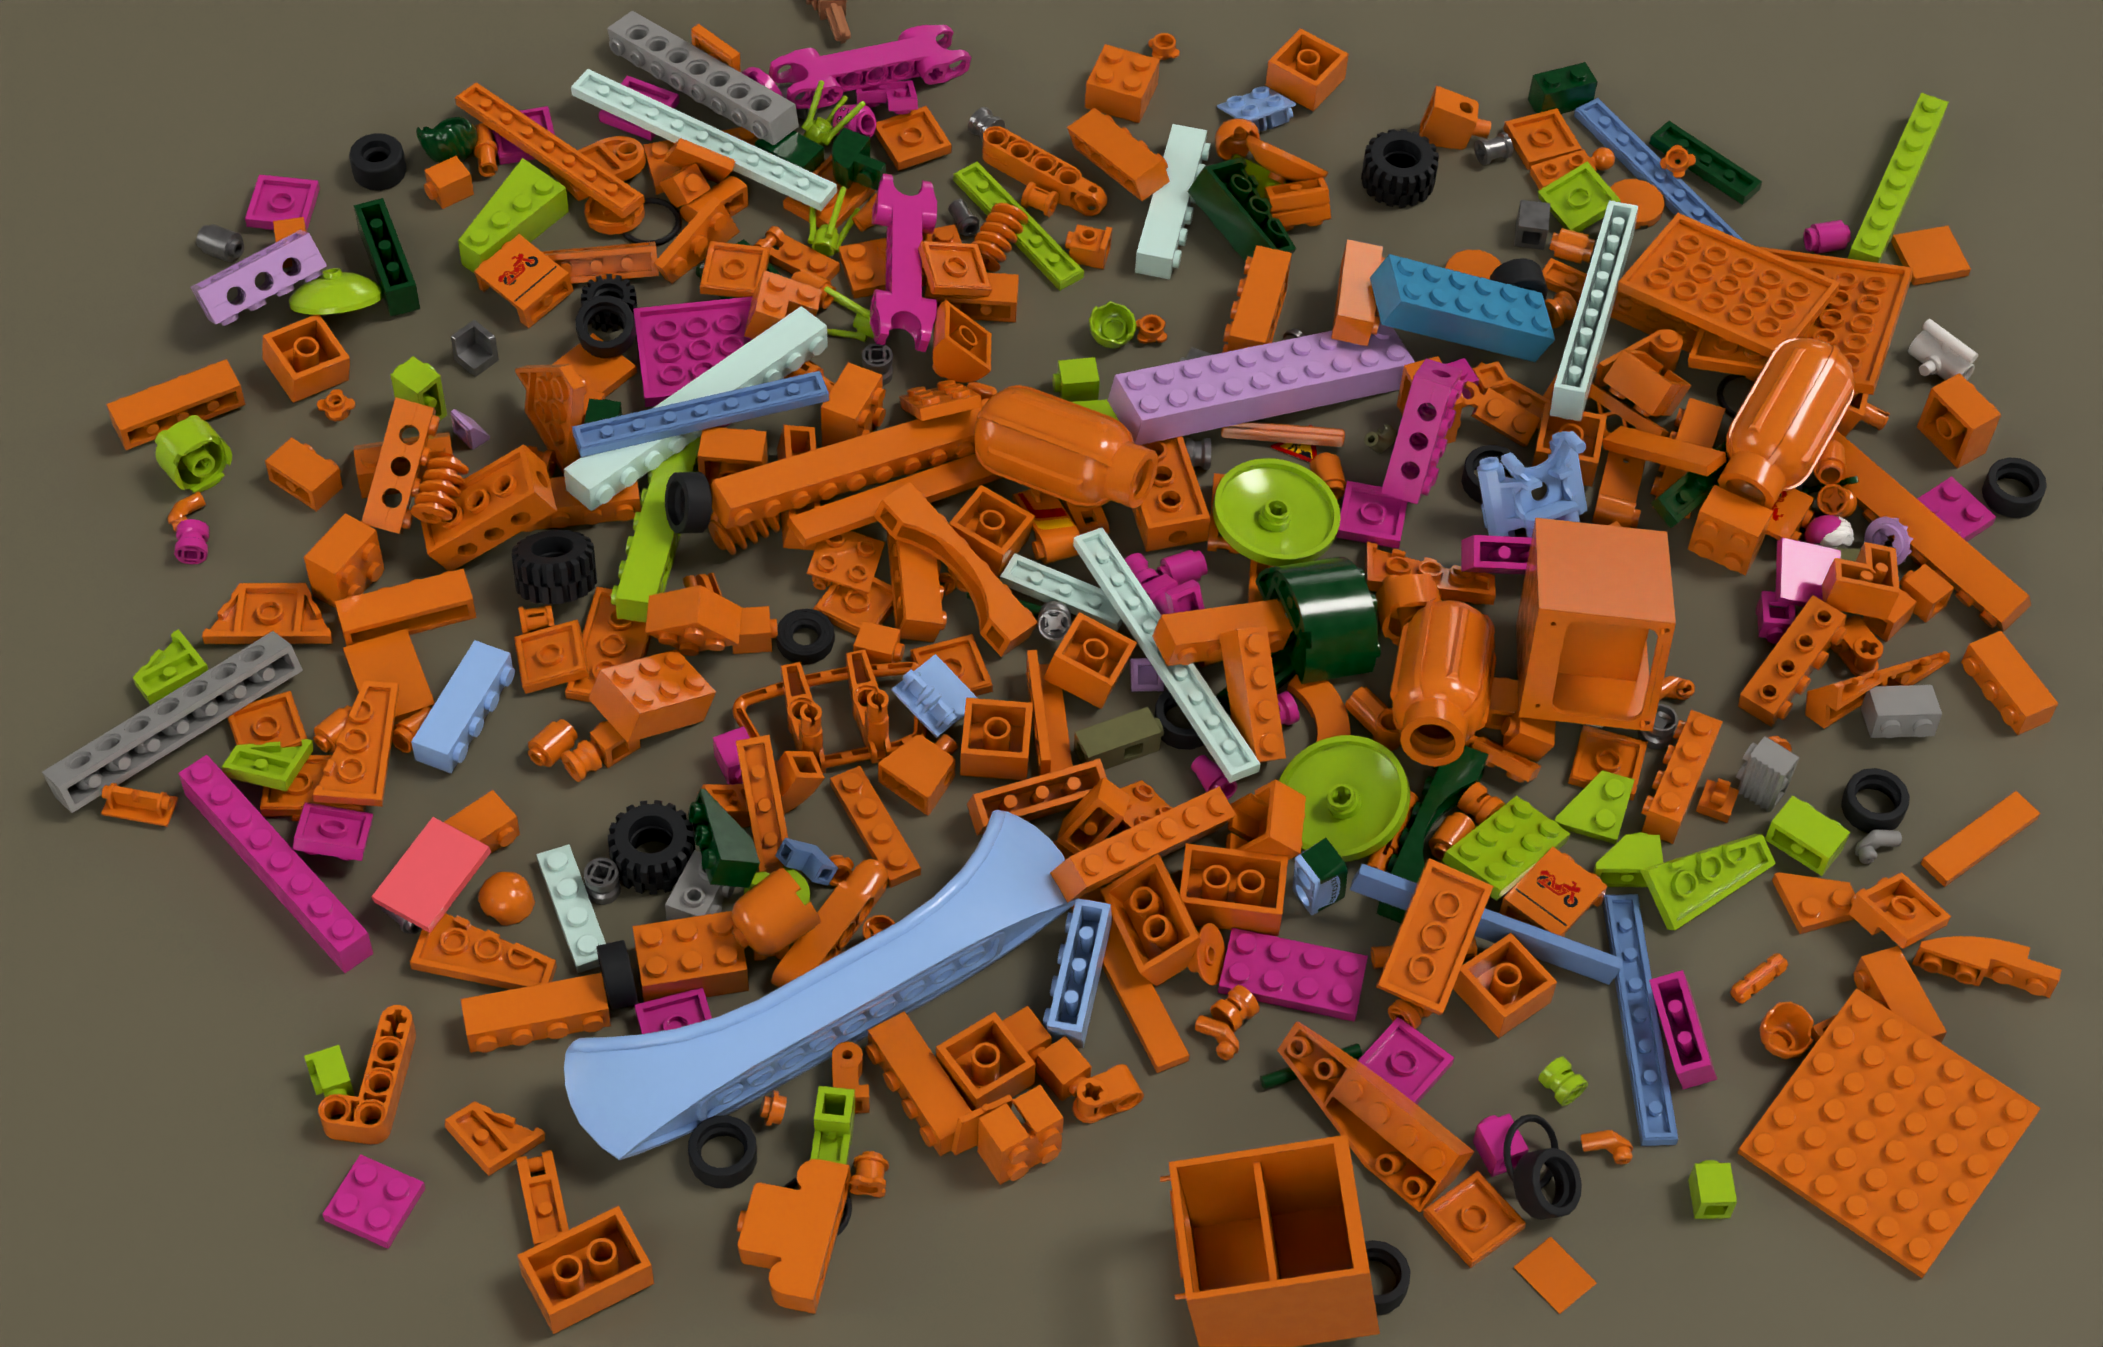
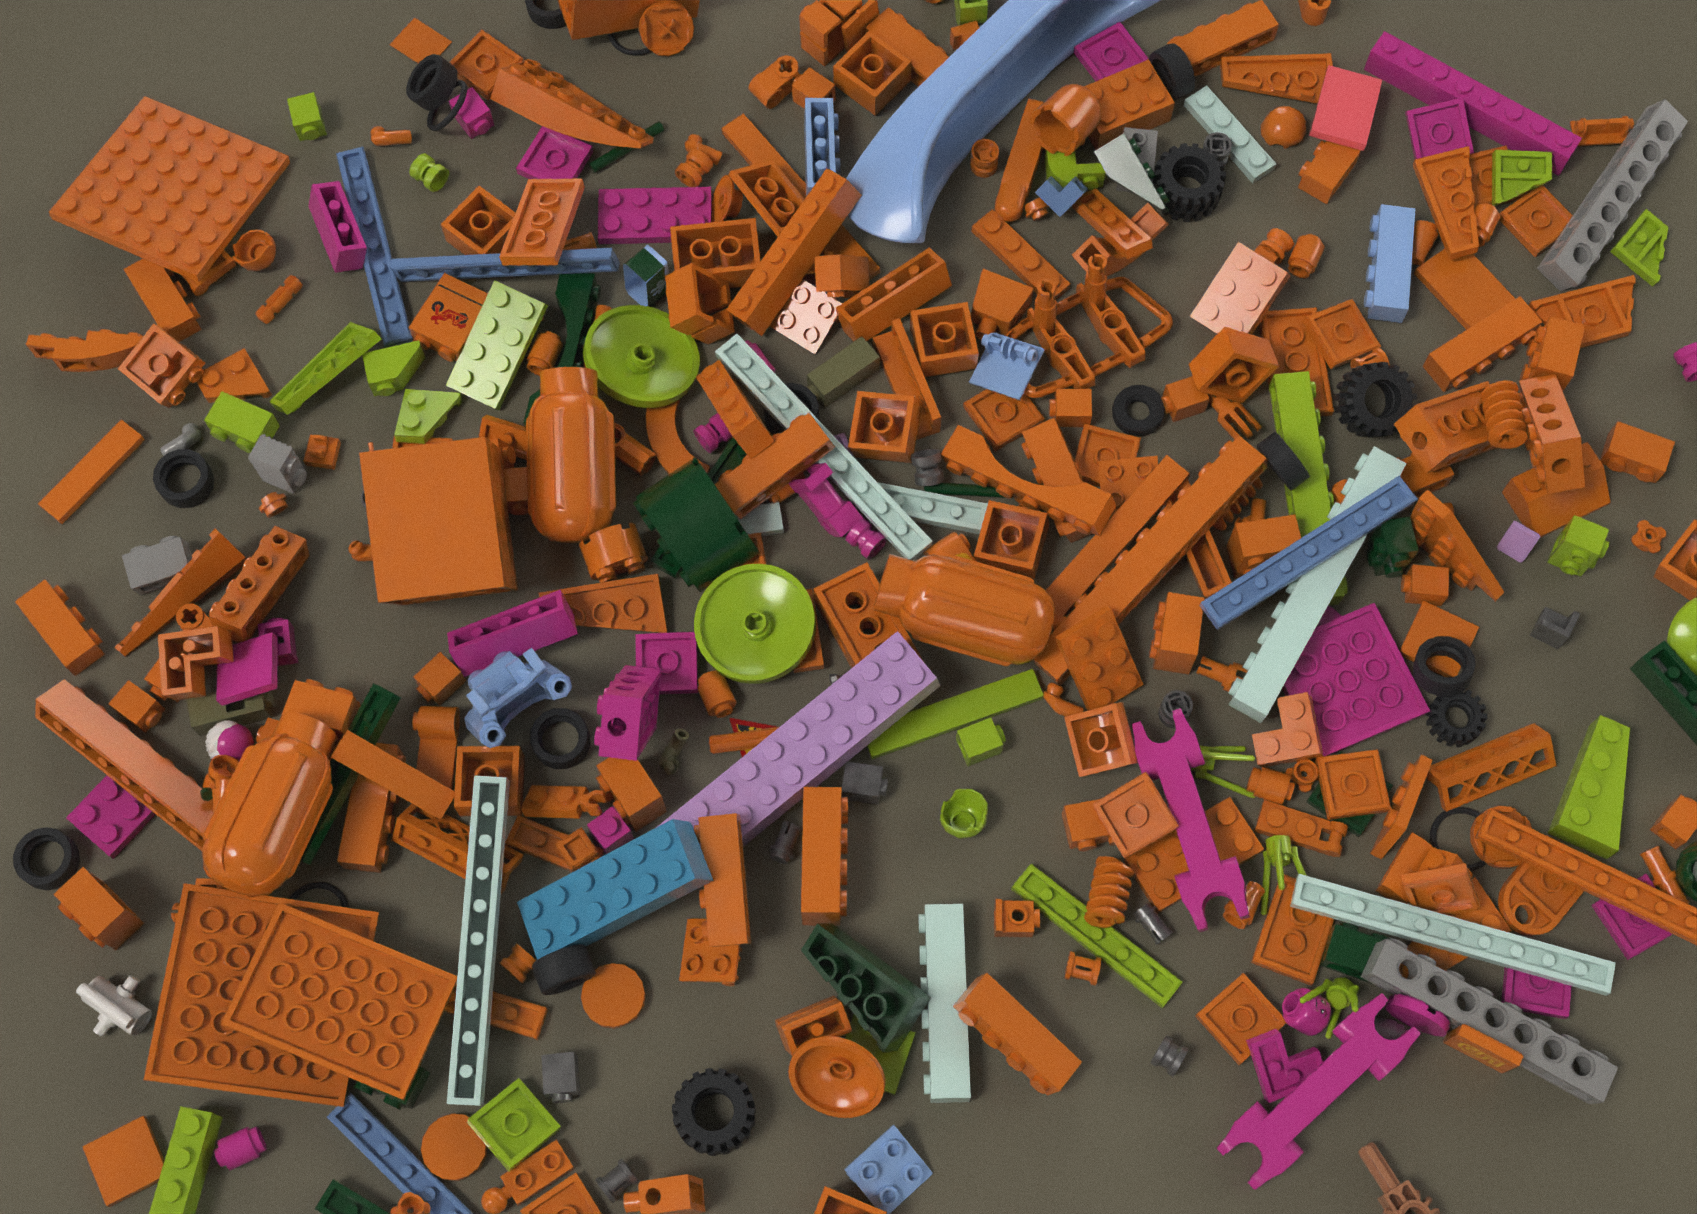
camera: 170 degrees right, 15 degrees up
(525, 279) = (1550, 711): orange panel -> none
(726, 754) = (1153, 277): dark pink brick -> none
(852, 161) = (1294, 950): dark green brick -> none
(1029, 1031) = (851, 107): orange brick -> none
(1032, 164) = (1107, 1003): orange piece -> none
(1122, 83) = (1042, 1158): orange brick -> none
(1151, 329) = (930, 823): orange plate -> none
(1184, 566) = (829, 555): dark pink brick -> none
(1232, 136) = (902, 1109): orange hair -> none
(1479, 803) = (521, 387): orange wheel -> none
(1572, 246) = (514, 1056): orange brick -> none
(1638, 378) = (420, 858): orange piece -> none
(1662, 345) = (409, 934): orange door -> none
(1680, 779) = (344, 481): orange brick -> none
(1885, 526) = (171, 748): lavender gear -> none

